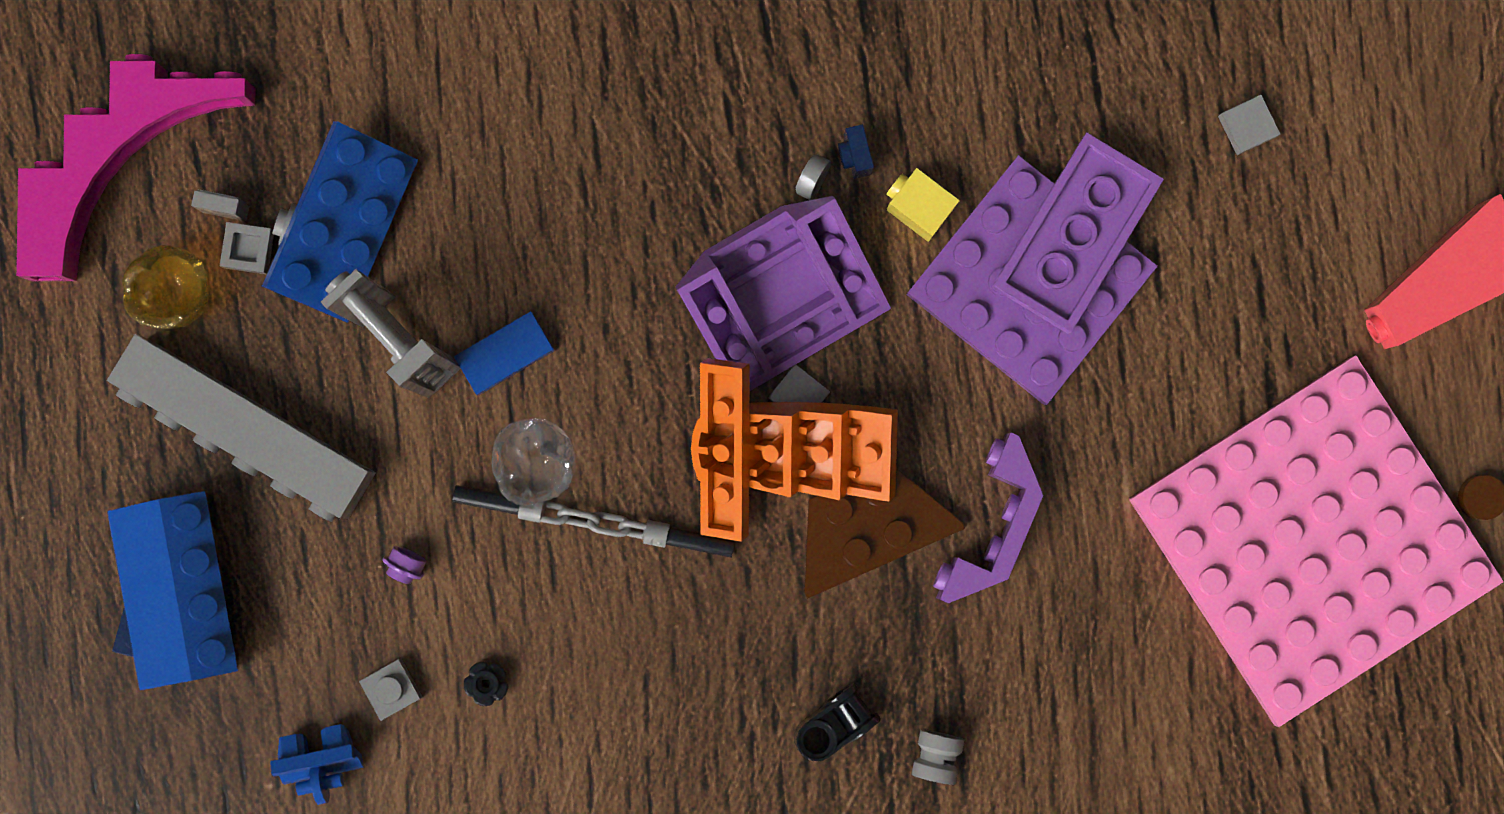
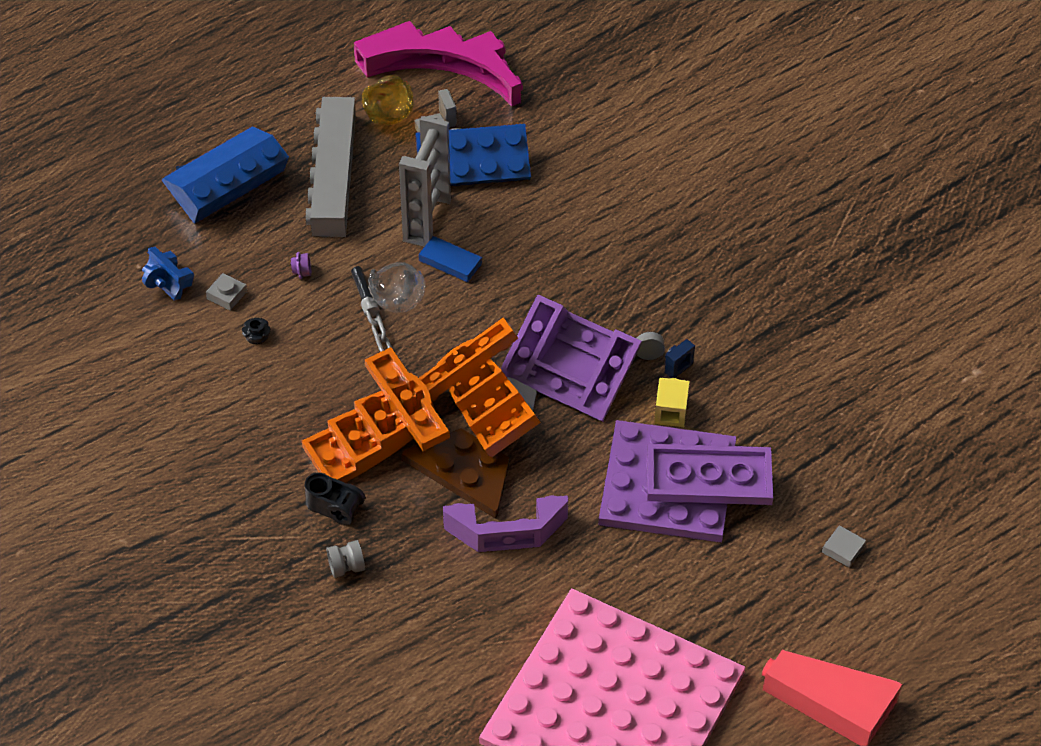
camera: 65 degrees right, 35 degrees down
(758, 610) = (378, 423): none -> orange slope

